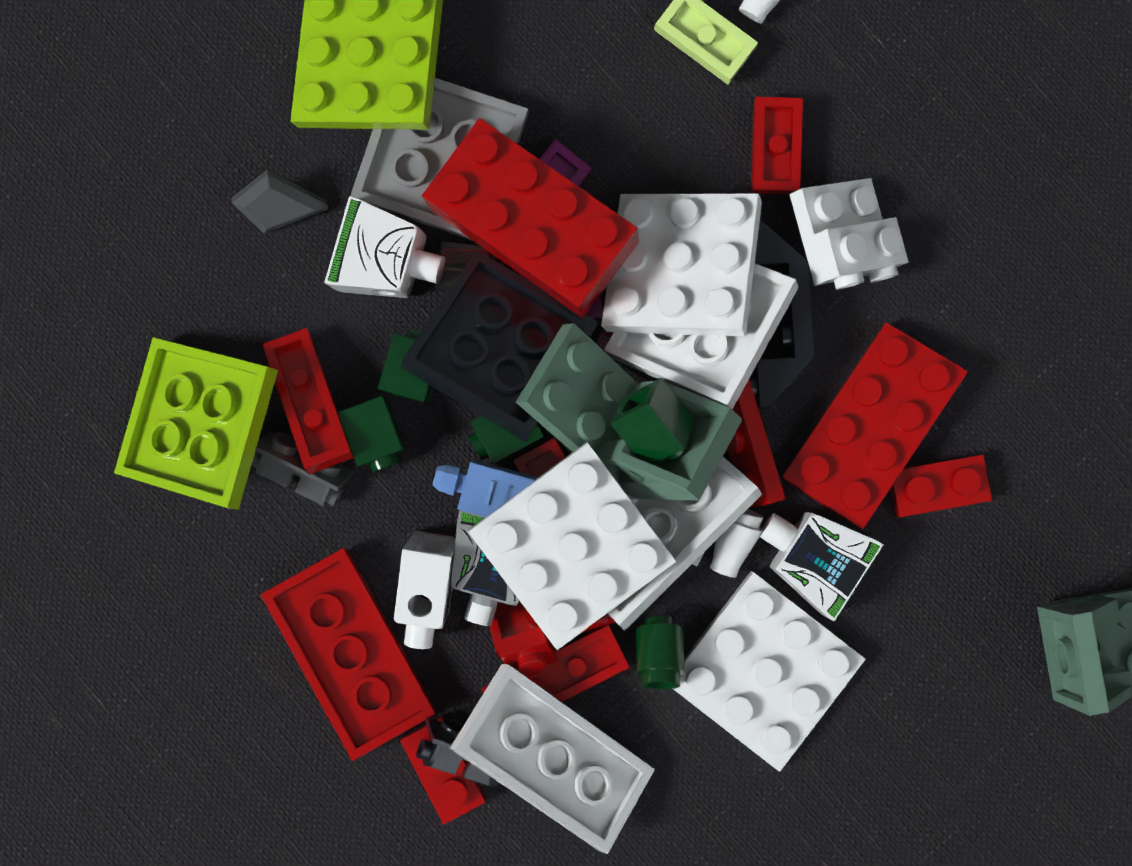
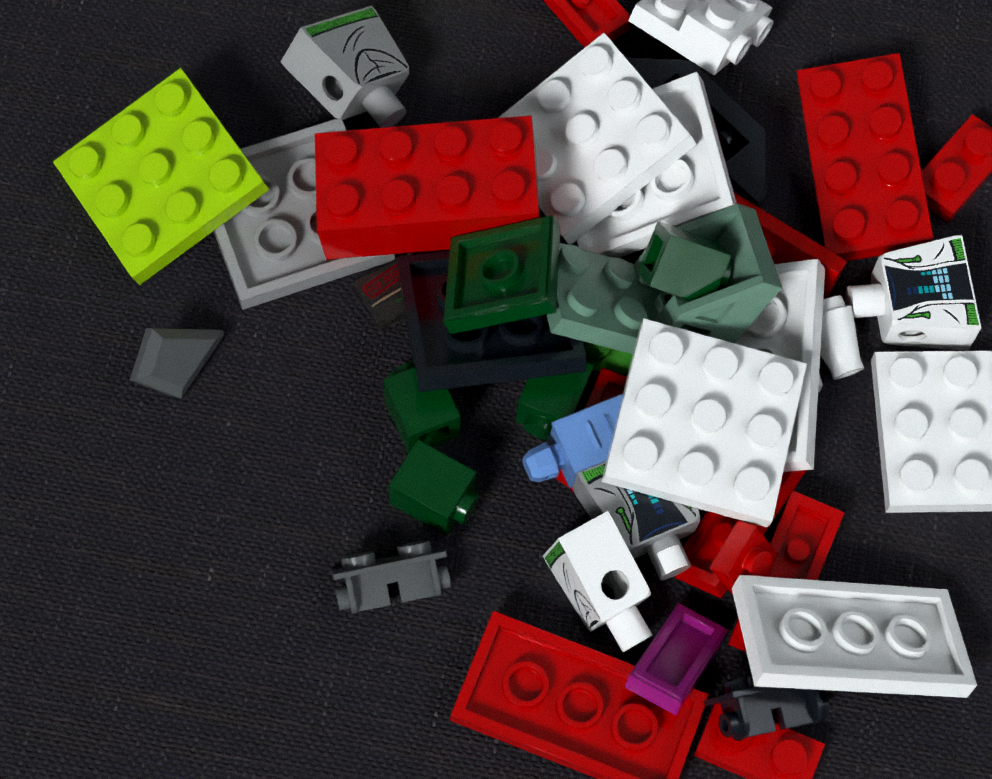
camera: 40 degrees left, 20 degrees down
(196, 423) = (259, 599): lime plate -> none
(308, 401) = (351, 501): red plate -> none
(380, 254) = (311, 328): white torso -> none
(434, 675) = (676, 659): none -> magenta tile
(521, 330) = (502, 275): none -> dark green tile
(563, 75) = (350, 66): none -> light grey torso
(660, 653) = (860, 478): dark green brick -> none

